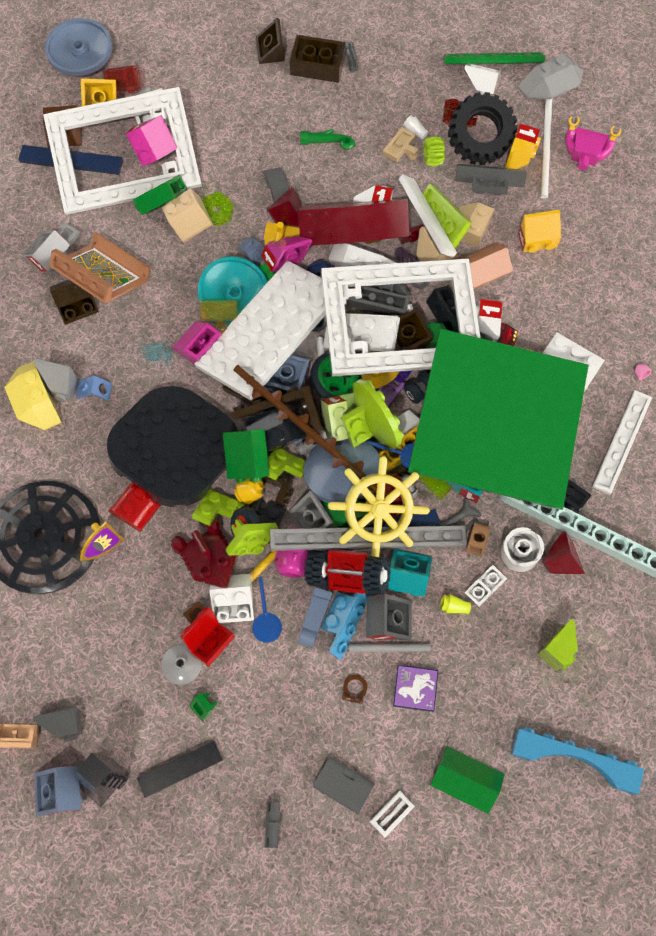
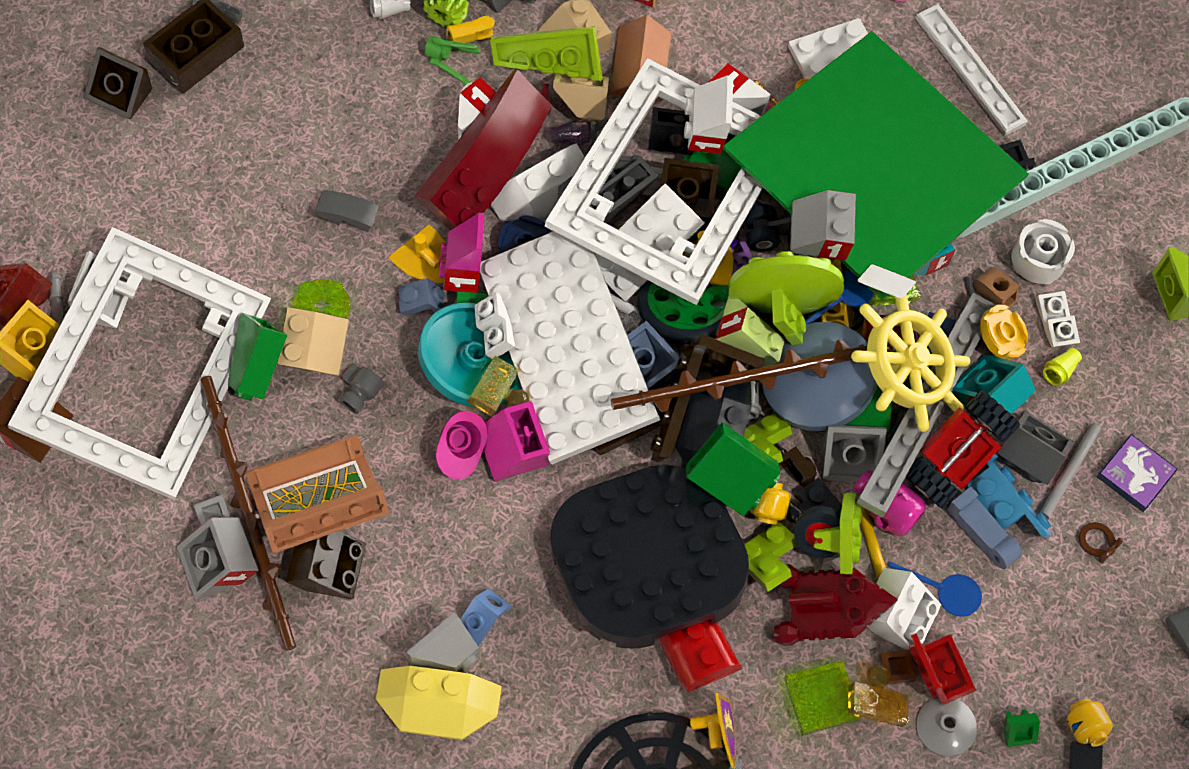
camera: 65 degrees left, 5 degrees down
(77, 246) = (241, 500): none -> reddish brown plant
(80, 160) = (110, 421): dark blue tile -> none
(151, 140) = (167, 312): slope -> none
(153, 585) = (820, 697): none -> clear neon green plate
(157, 351) = (488, 504): clear light blue bracket -> none
(168, 616) = (875, 701): none -> clear yellow plate
(176, 318) = (461, 445): none -> dark pink piece
(182, 255) = (364, 386): none -> dark grey piece
(229, 744) = (1089, 722): none -> yellow head
(255, 288) = (495, 323): none -> white slope
(286, 208) = (394, 222): dark red slope -> none
(328, 136) = (301, 133): green plant -> none
(401, 144) = (402, 38): tan plate -> none
(408, 168) = (441, 49): none -> bright green plant
(416, 464) = (886, 281): none -> white sticker
(426, 409) = (823, 225): none -> light grey slope
(427, 216) = (534, 69): white tile -> none
(430, 173) = (472, 30): none -> yellow bar
(450, 308) = (709, 115): none -> white slope
(450, 557) = (1003, 332): none -> yellow tile
(465, 512) = (952, 281): dark grey piece -> none
(563, 557) = (1076, 216): dark red slope -> none

